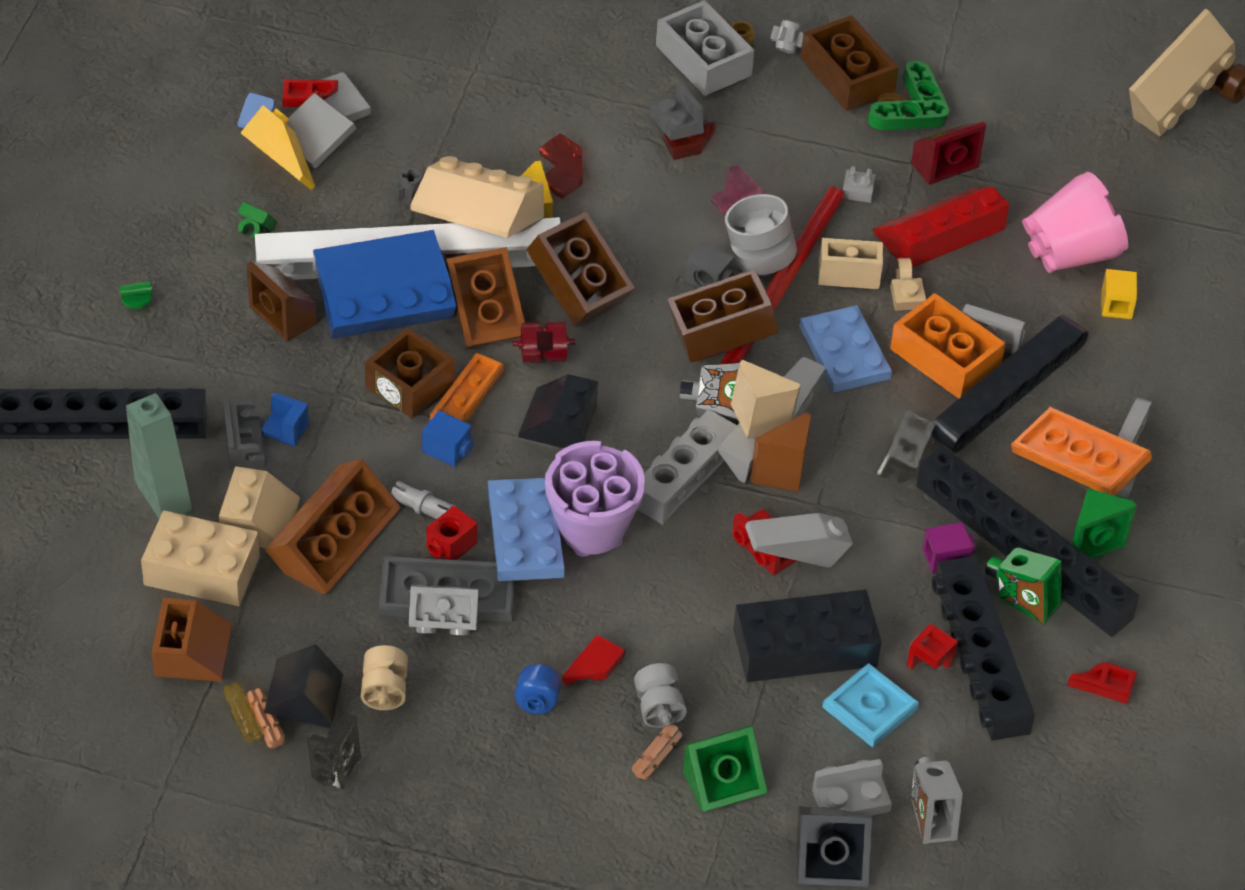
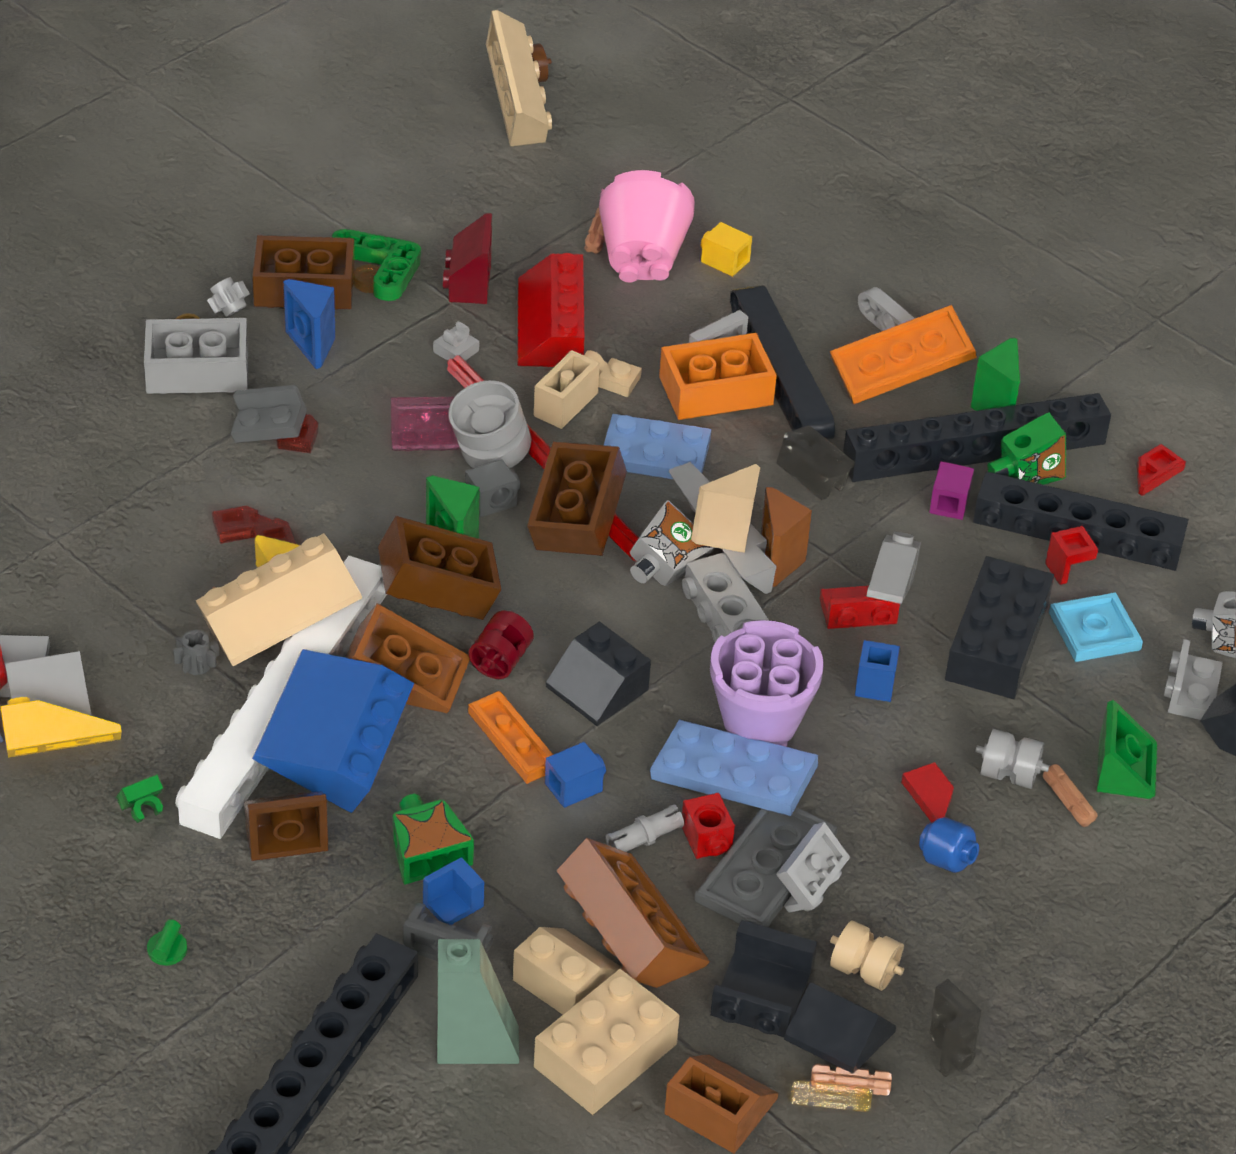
camera: 60 degrees left, 5 degrees down
(323, 383) = (428, 838): none -> green torso
(334, 628) = (764, 979): none -> black panel
(409, 372) = (472, 760): reddish brown brick -> none
(644, 257) = (452, 505): none -> green slope
(687, 572) = (877, 671): none -> blue brick
(792, 90) = (310, 318): none -> blue slope

